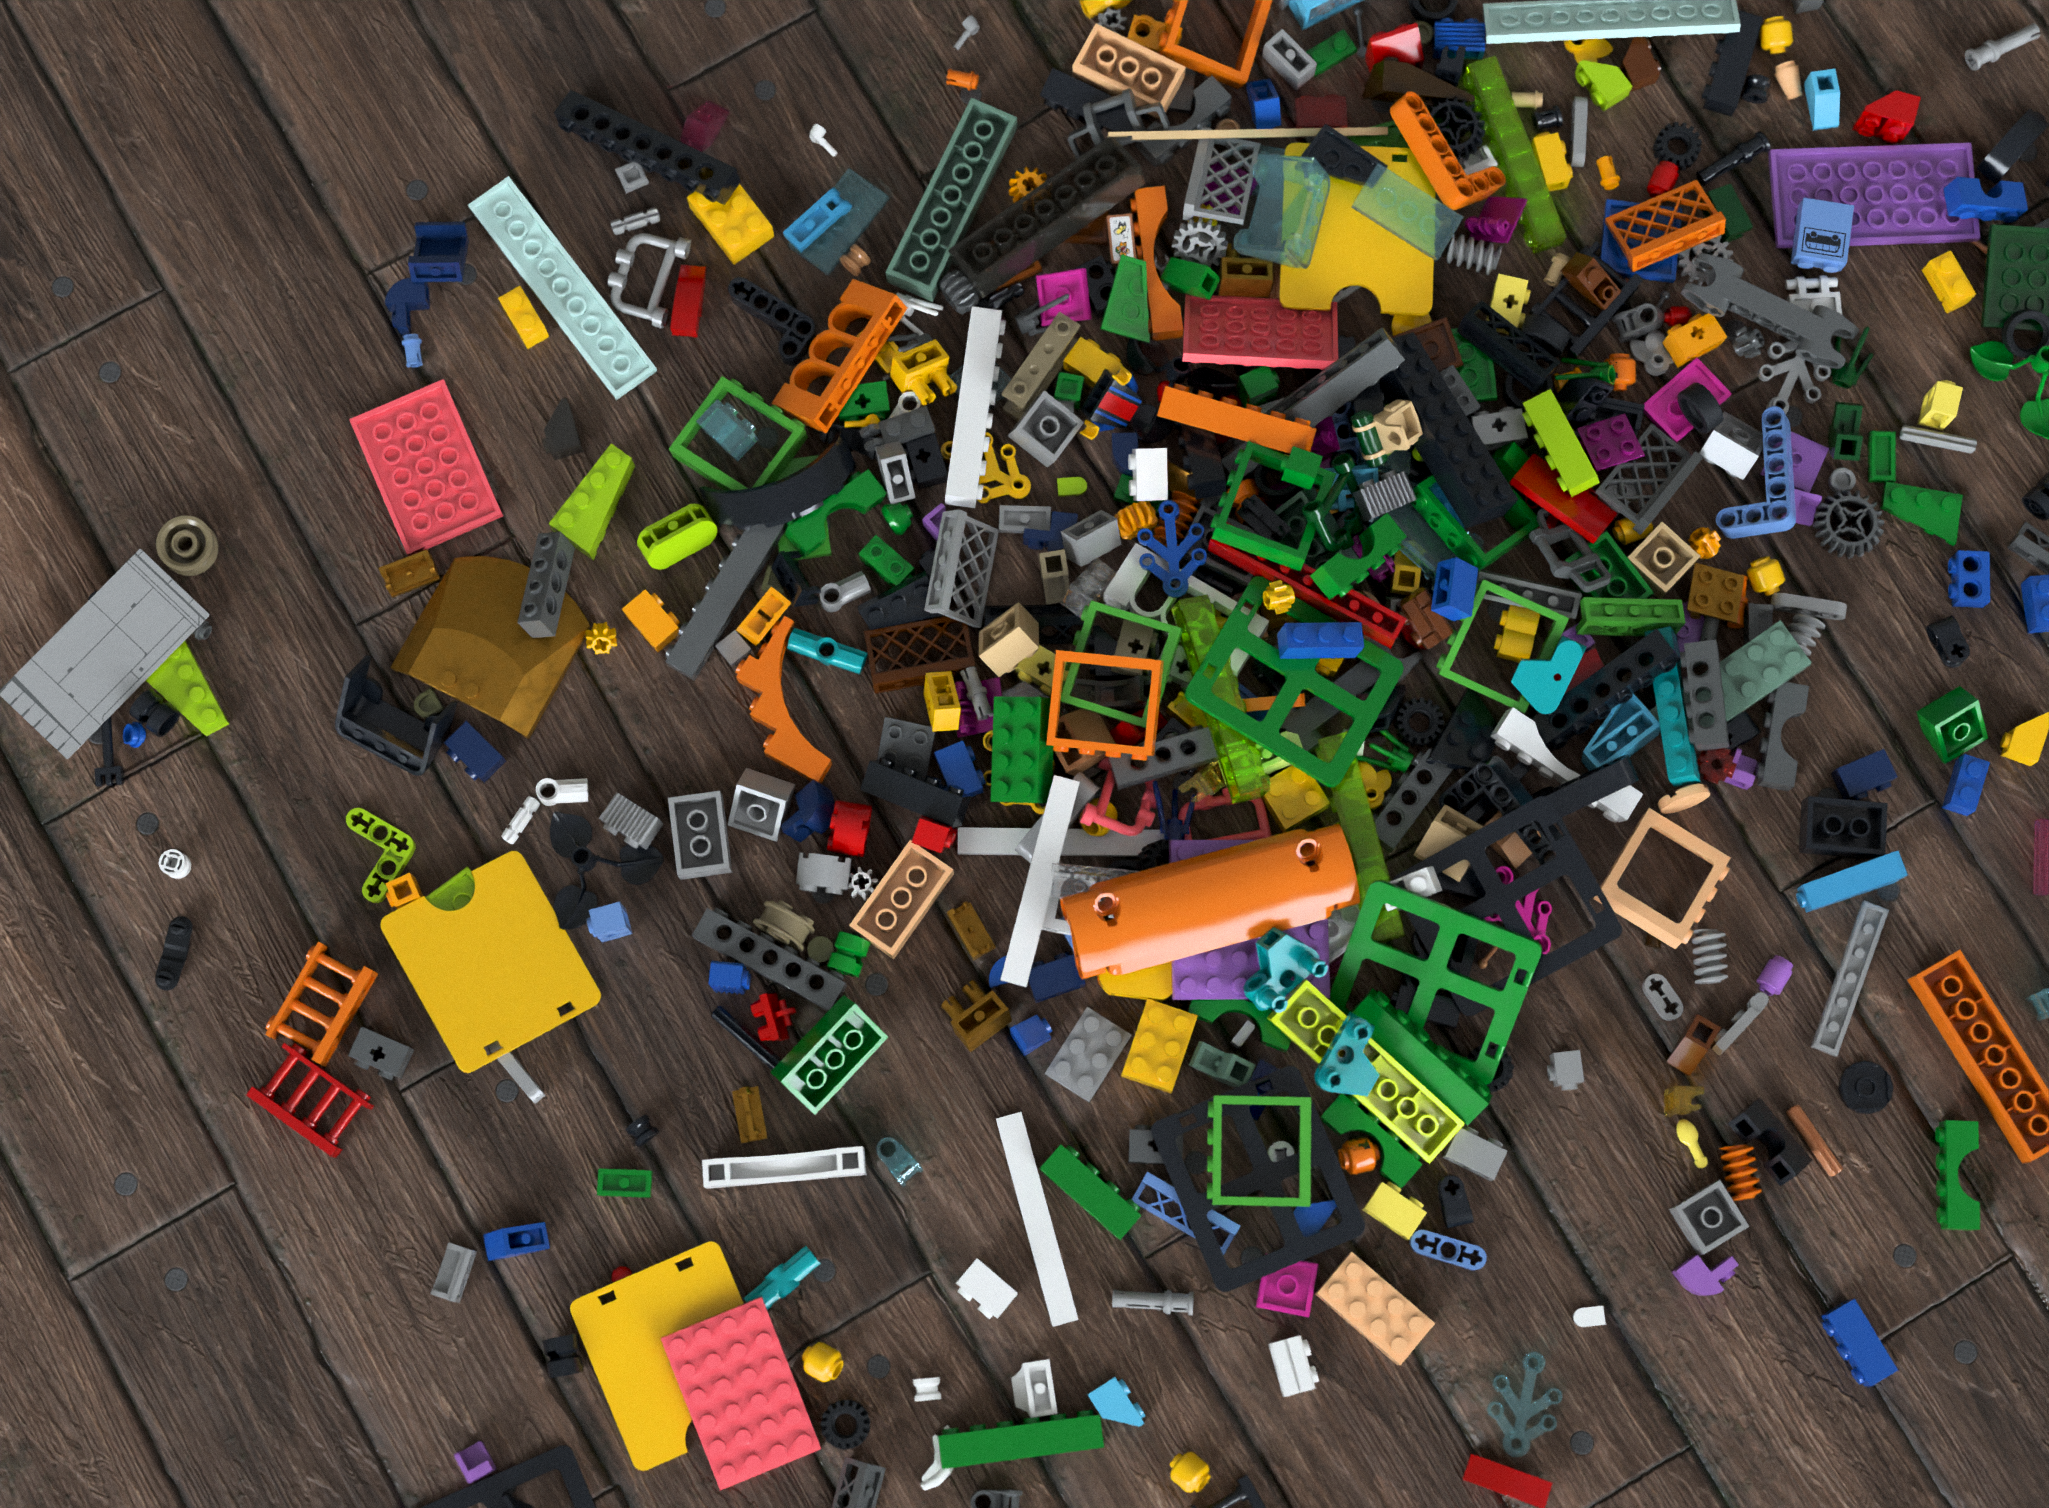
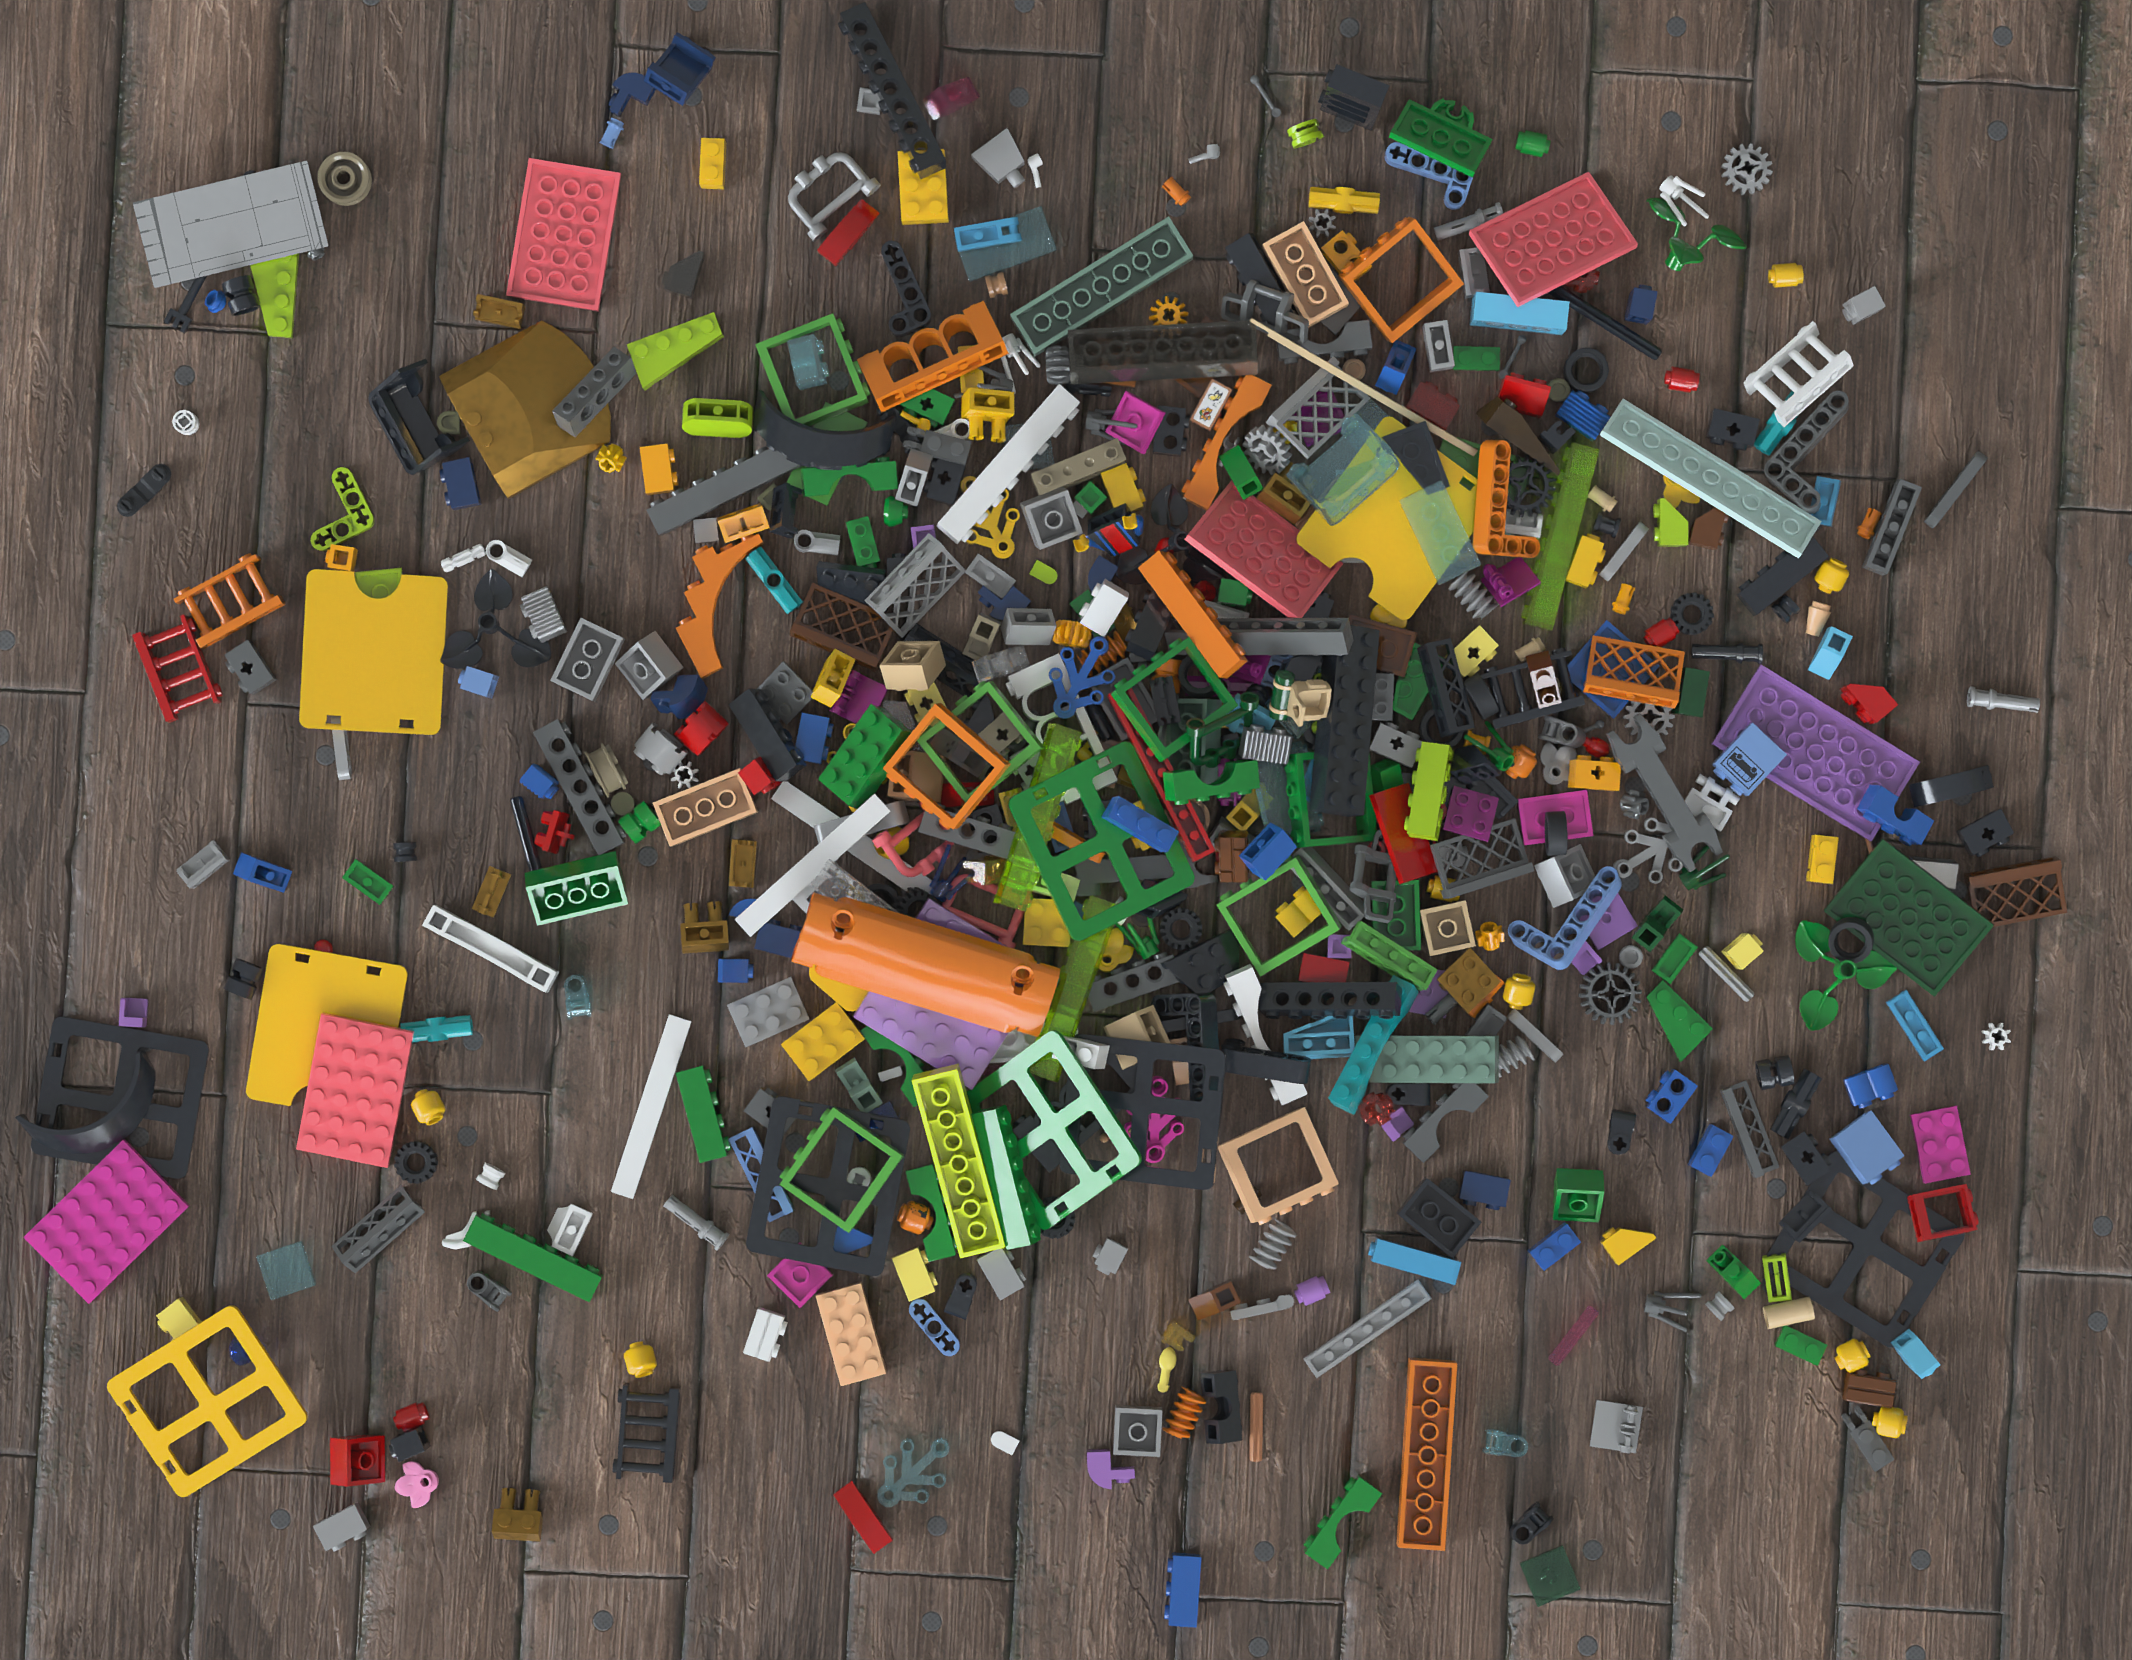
camera: 30 degrees right, 10 degrees up
(562, 288) = (757, 157): light aqua plate -> none
(635, 221) = (848, 140): light grey axle -> none
(785, 149) = (1001, 159): none -> light grey torso
(976, 693) = (863, 689): light grey pin -> none
(986, 1289) = (580, 1133): white brick -> none
(1114, 1404) = (617, 1276): medium azure slope -> none
(1127, 302) = (1178, 461): green wing -> none
(1278, 597) = (1131, 770): yellow gear -> none
(1280, 960) = (949, 1039): teal piece -> none
(1300, 467) = (1211, 685): green brick -> none
(1353, 1071) = (945, 1157): teal piece -> none
(1536, 680) = (1282, 957): teal piece -> none
(1657, 1000) = (1225, 1250): light grey beam -> none
(1684, 798) = (1335, 1117): light nougat tile -> none
(1717, 734) = (1411, 1049): dark grey brick -> none
(1865, 1087) = (1321, 1414): black tile -> none

